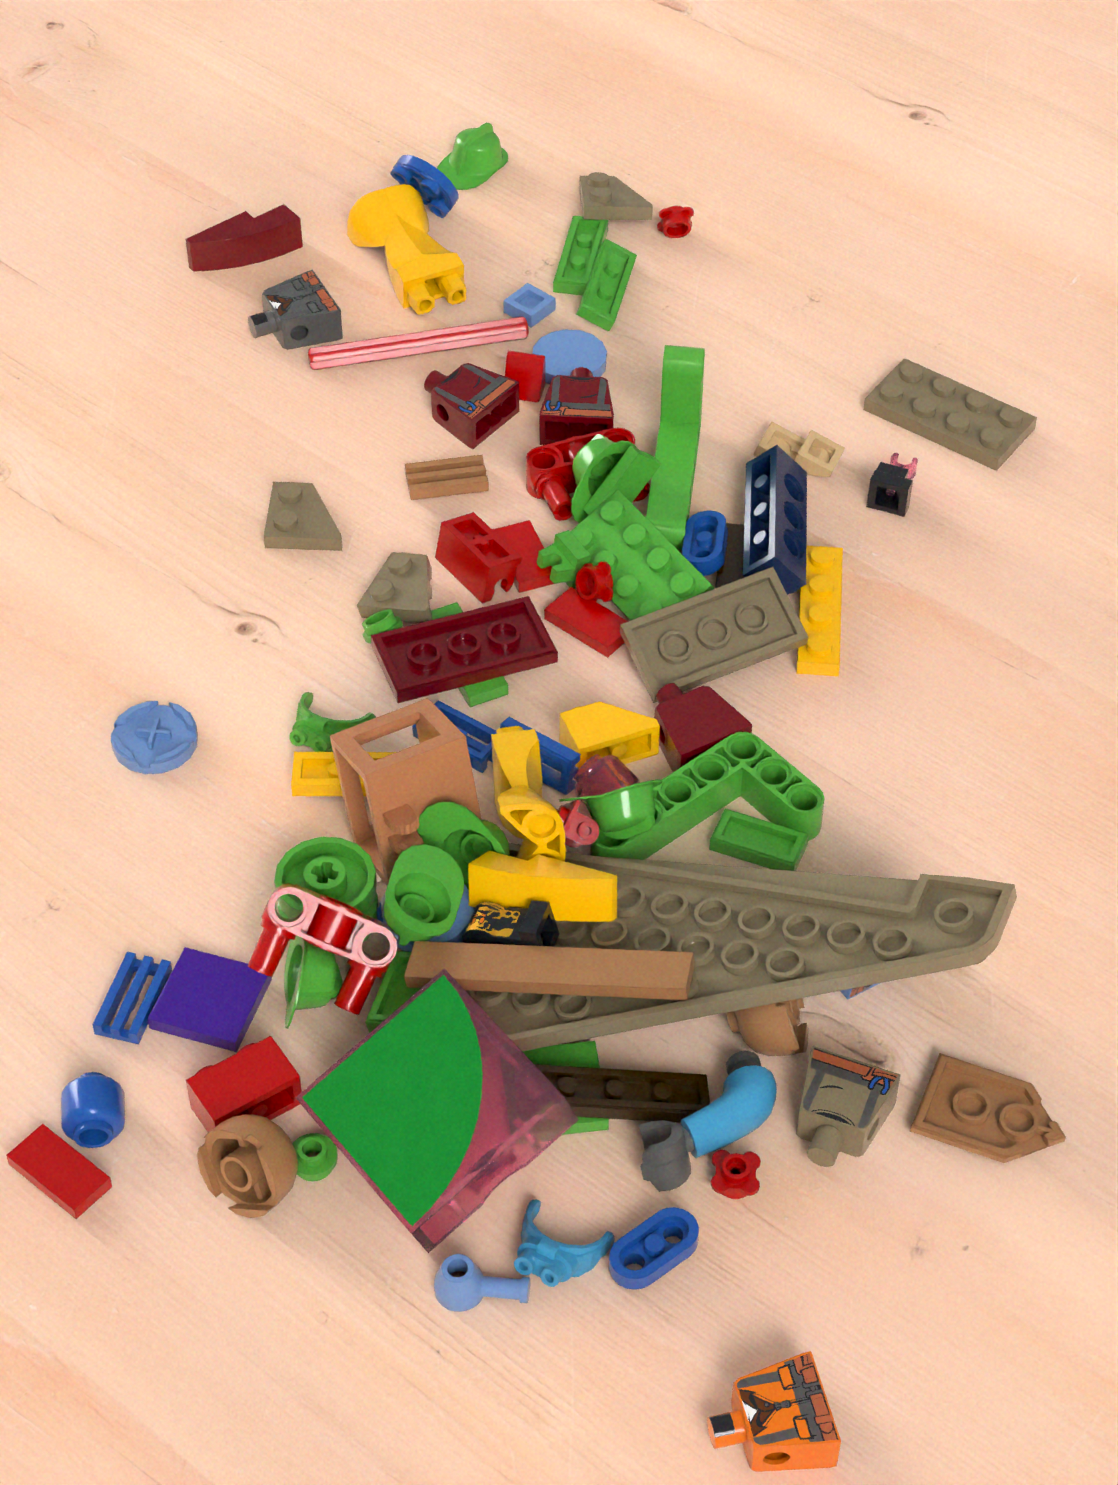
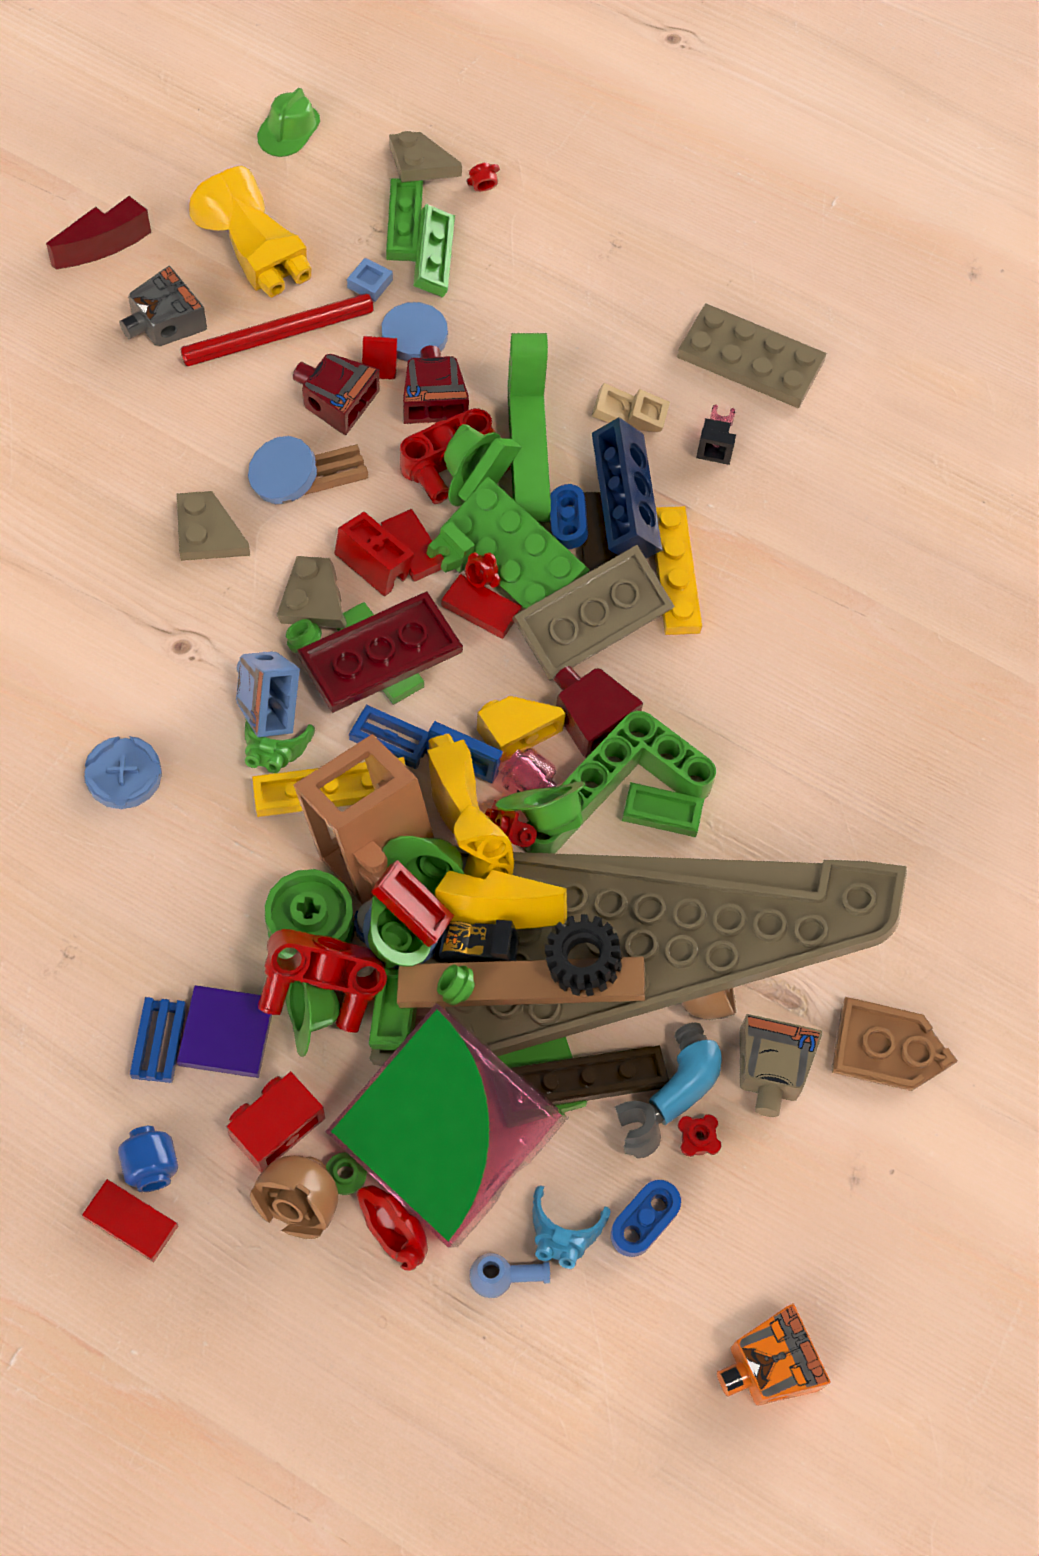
camera: 15 degrees left, 15 degrees up
(328, 663) = (267, 692): none -> medium blue torso
(355, 1212) = (393, 1227): none -> red arm
(393, 469) = (282, 469): none -> medium blue tile
(430, 182) = (256, 158): blue tile -> none
(439, 872) = (412, 903): none -> red tile
(472, 957) = (456, 984): none -> bright green plate
(624, 959) = (583, 977): none -> black tyre

